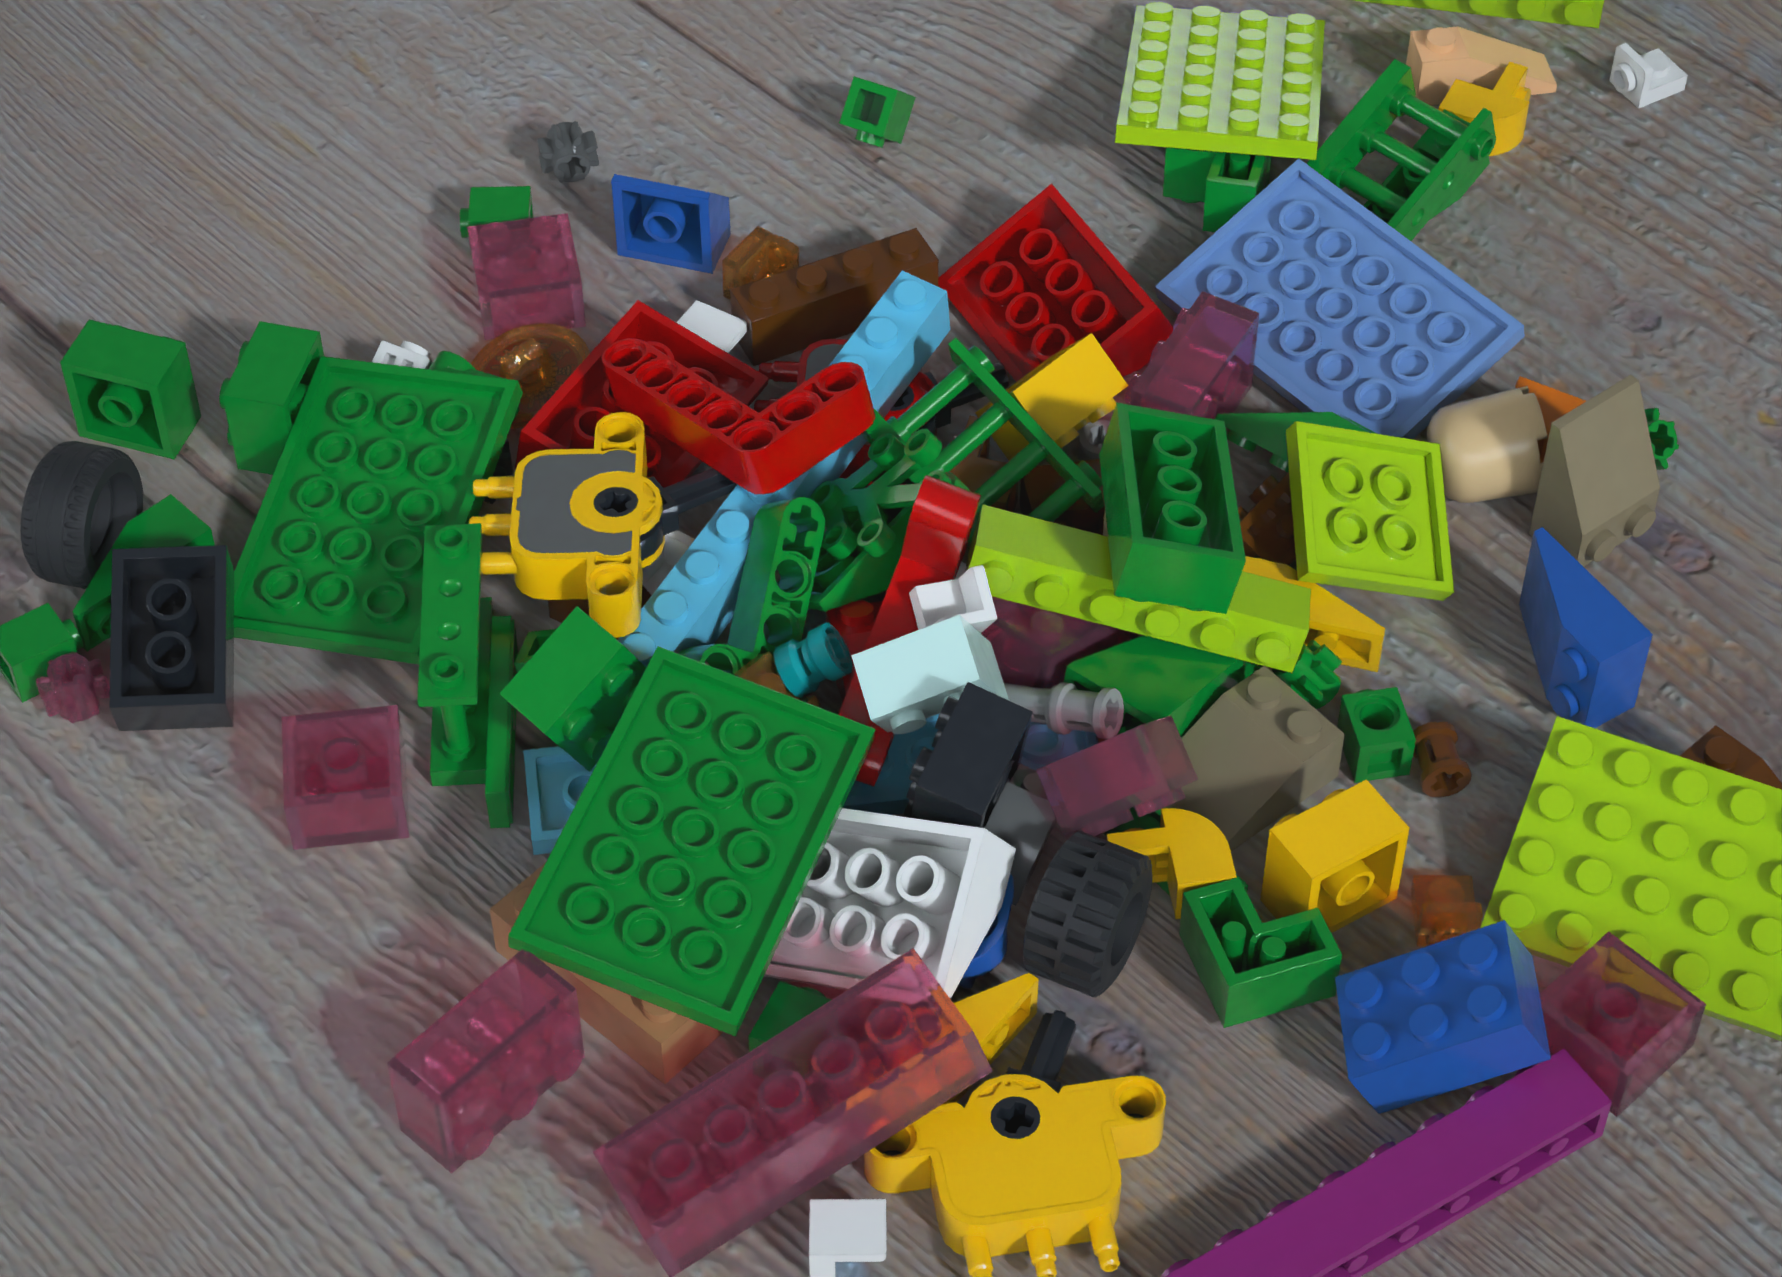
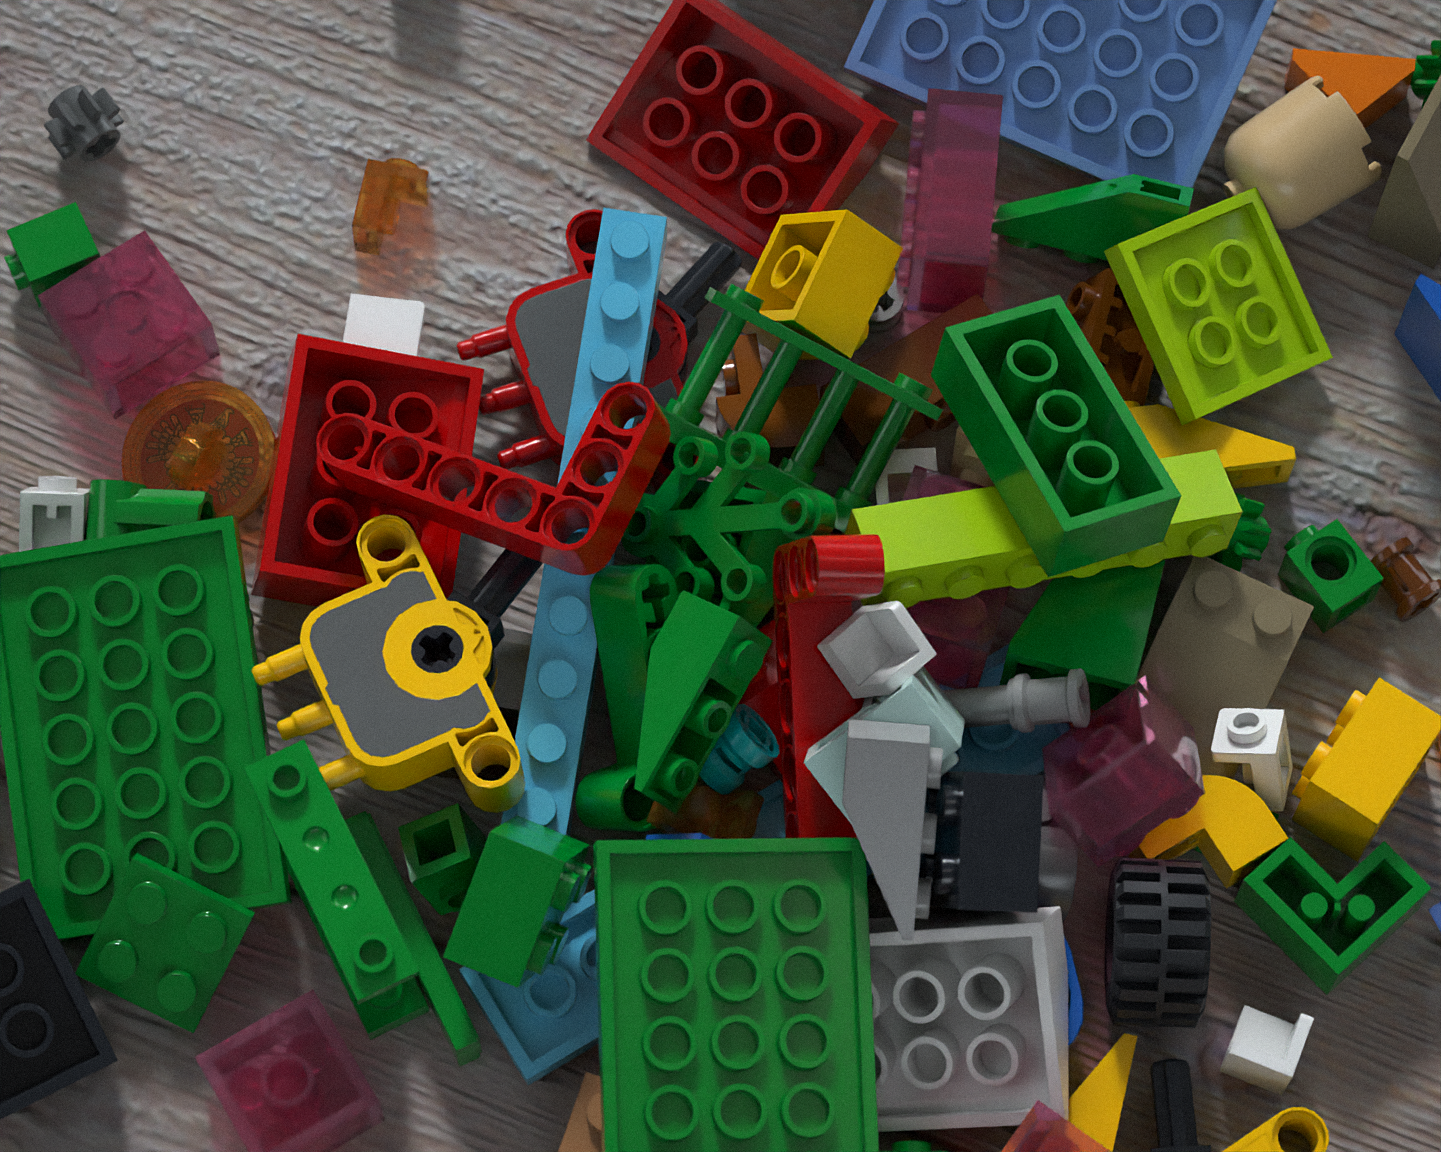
camera: 25 degrees left, 20 degrees up
(311, 650) = (164, 943): none -> green plate
(669, 223) = (257, 182): blue slope -> none
(793, 596) = (692, 688): none -> green slope
(826, 295) = (496, 215): reddish brown brick -> none
(899, 696) = (885, 803): none -> light grey slope
(1148, 1042) = (1265, 1049): none -> white panel
(1253, 816) = (1262, 745): none -> white bracket

